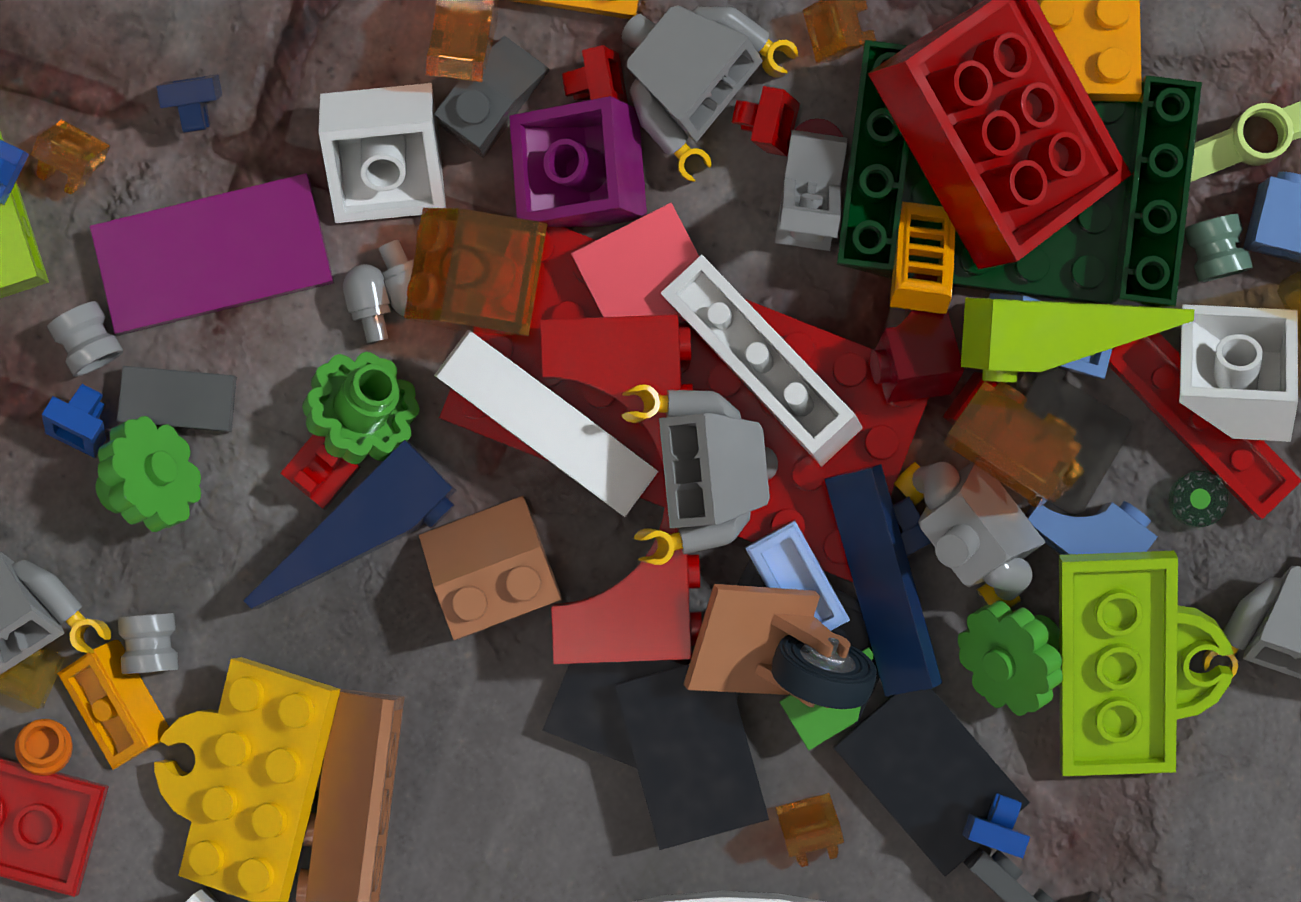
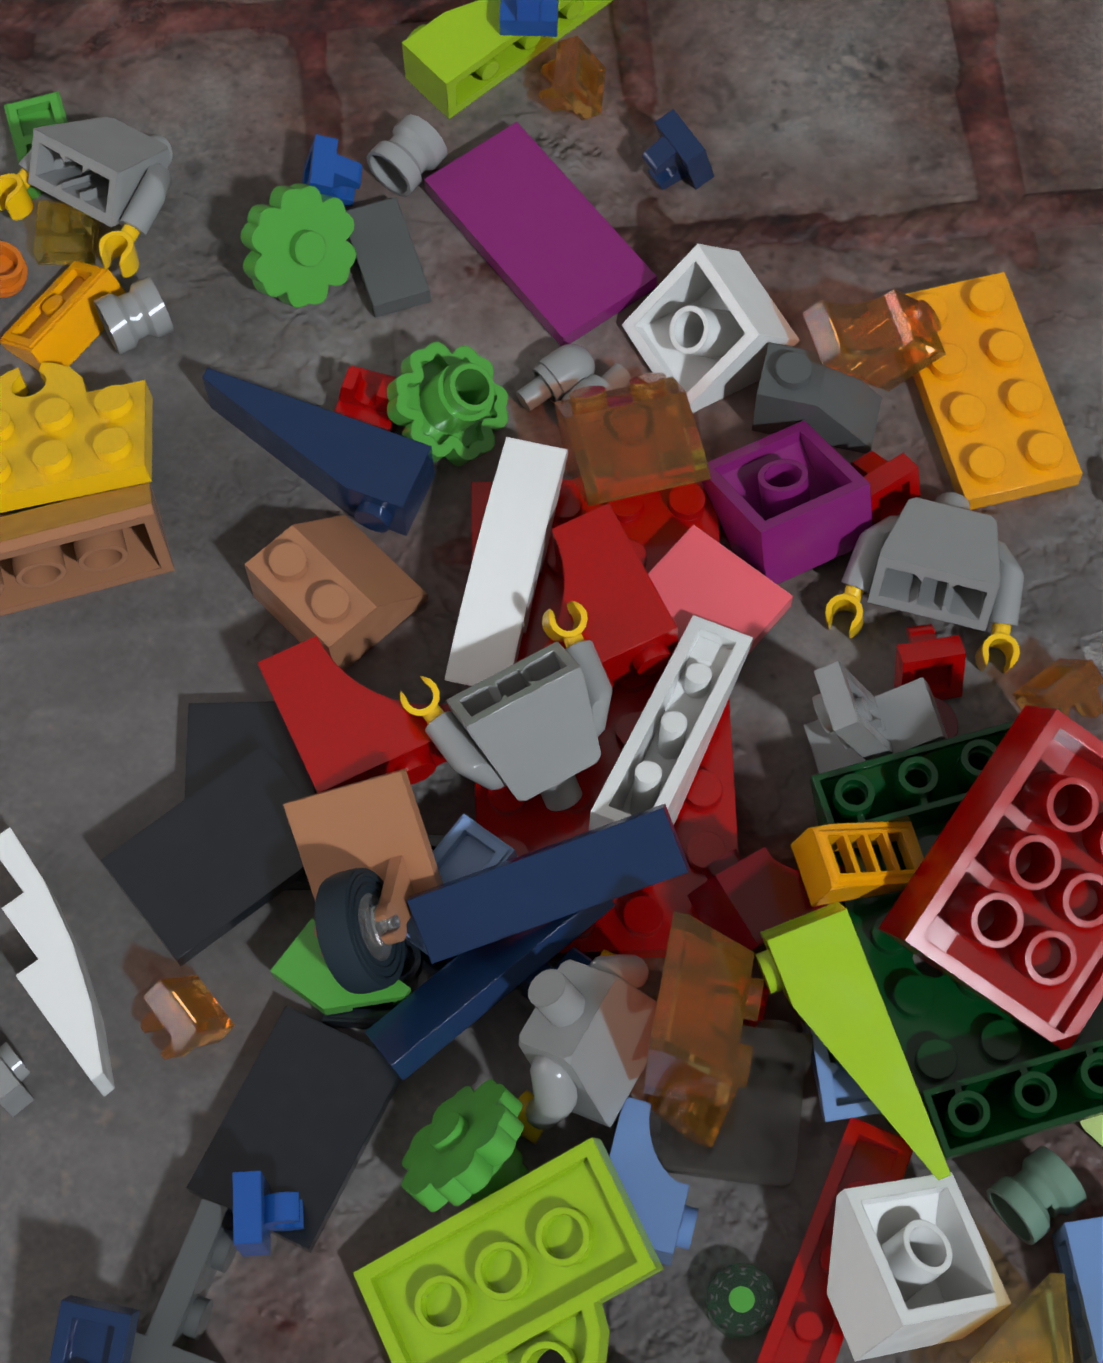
camera: 65 degrees right, 20 degrees down
(853, 510) = (548, 883): none -> dark blue tile

